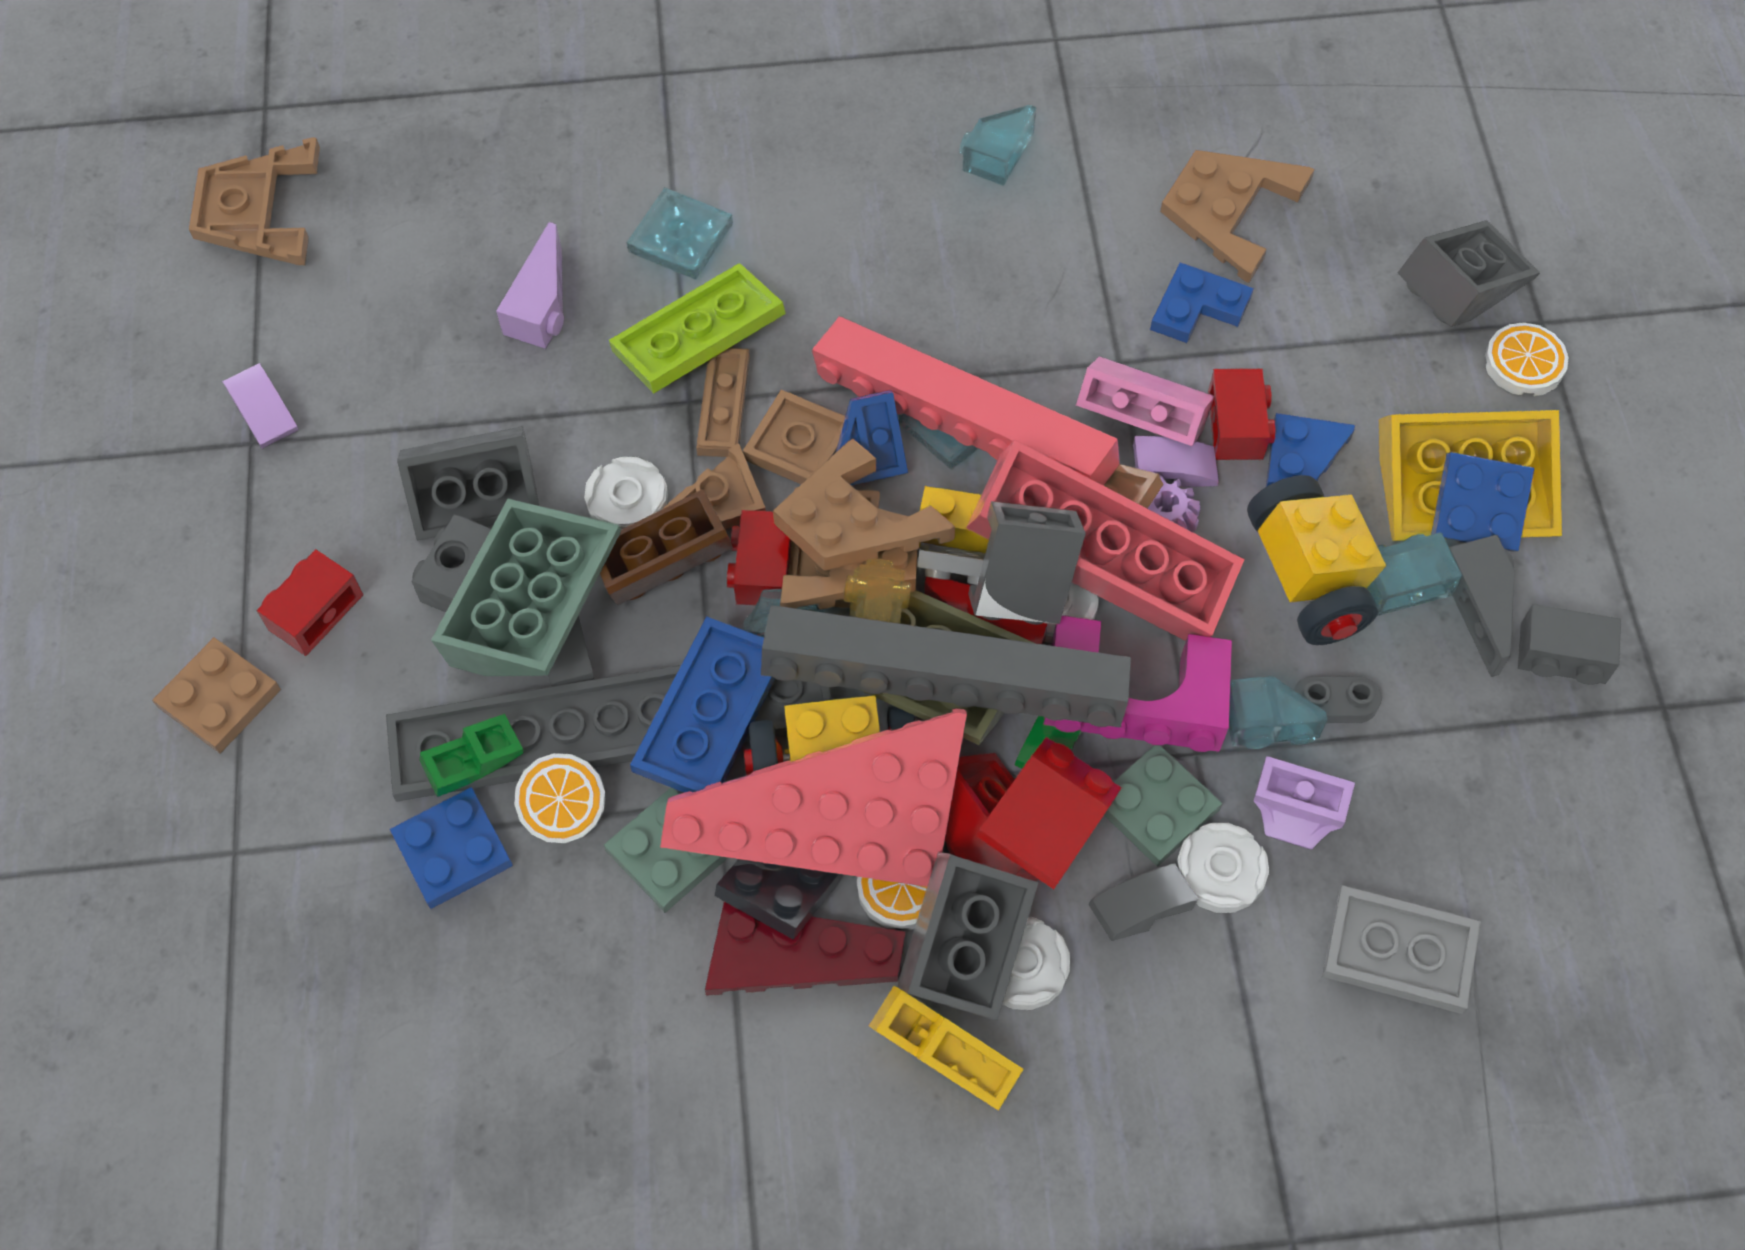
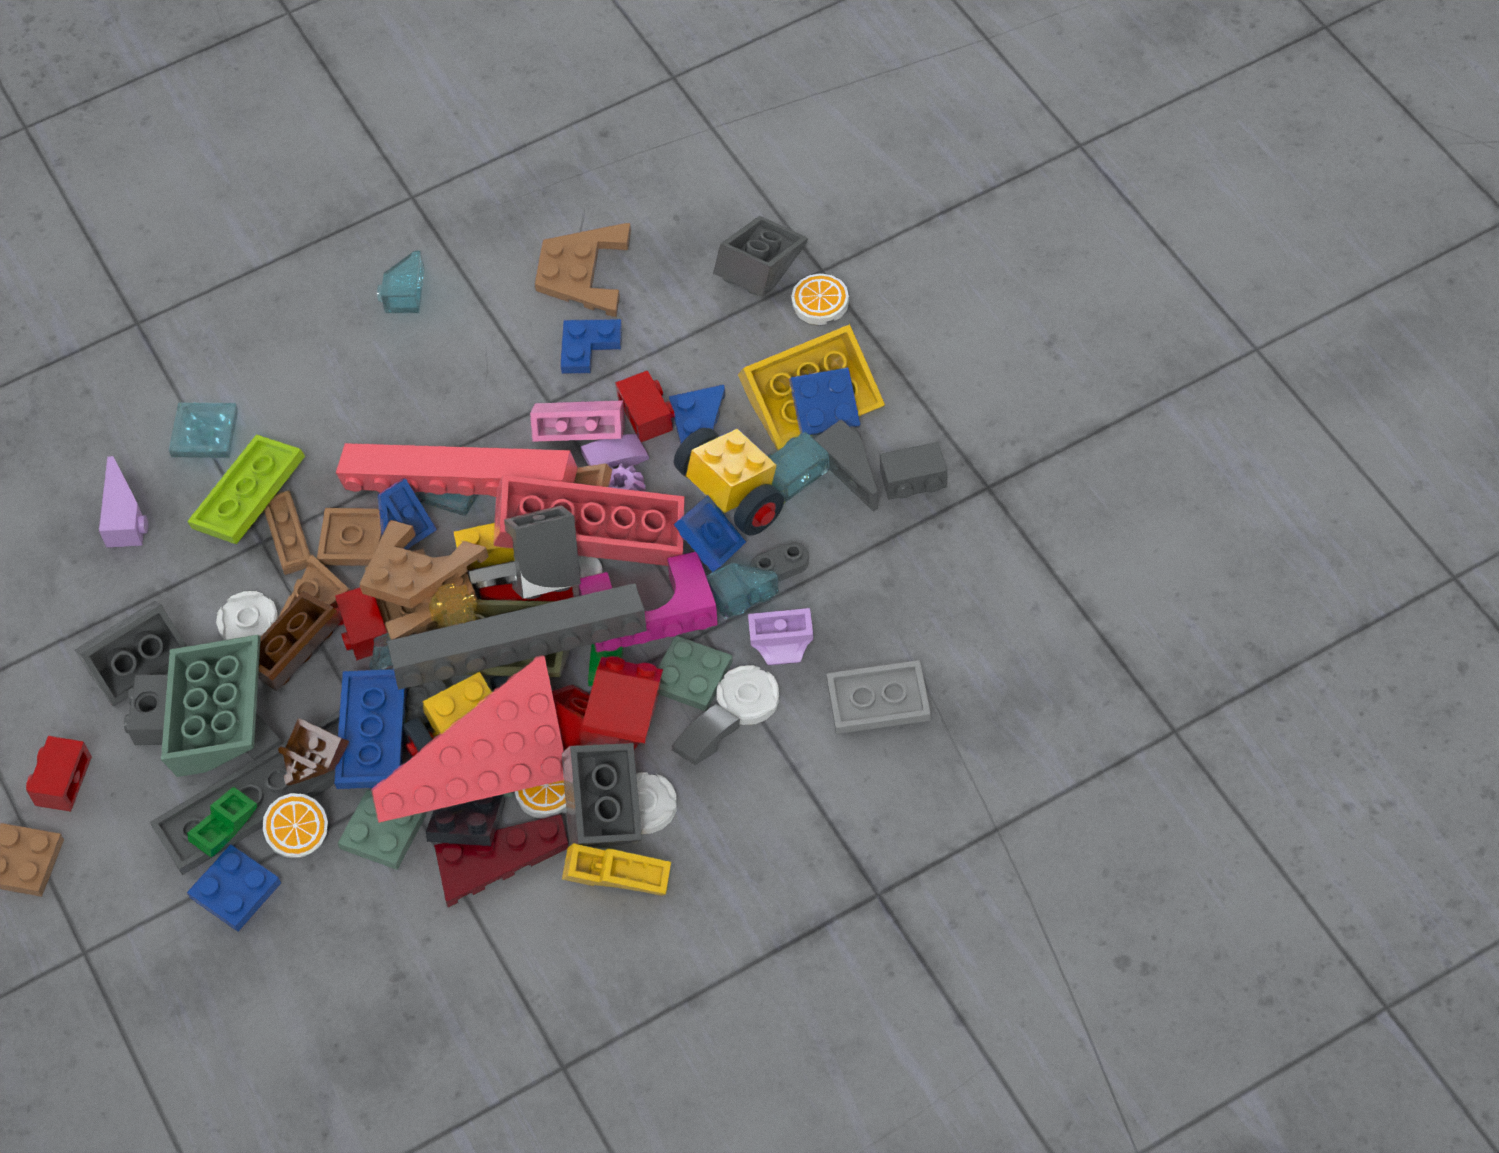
camera: 20 degrees left, 5 degrees down
(619, 709) = (311, 752): none -> reddish brown slope
(1258, 623) = (709, 533): none -> blue plate

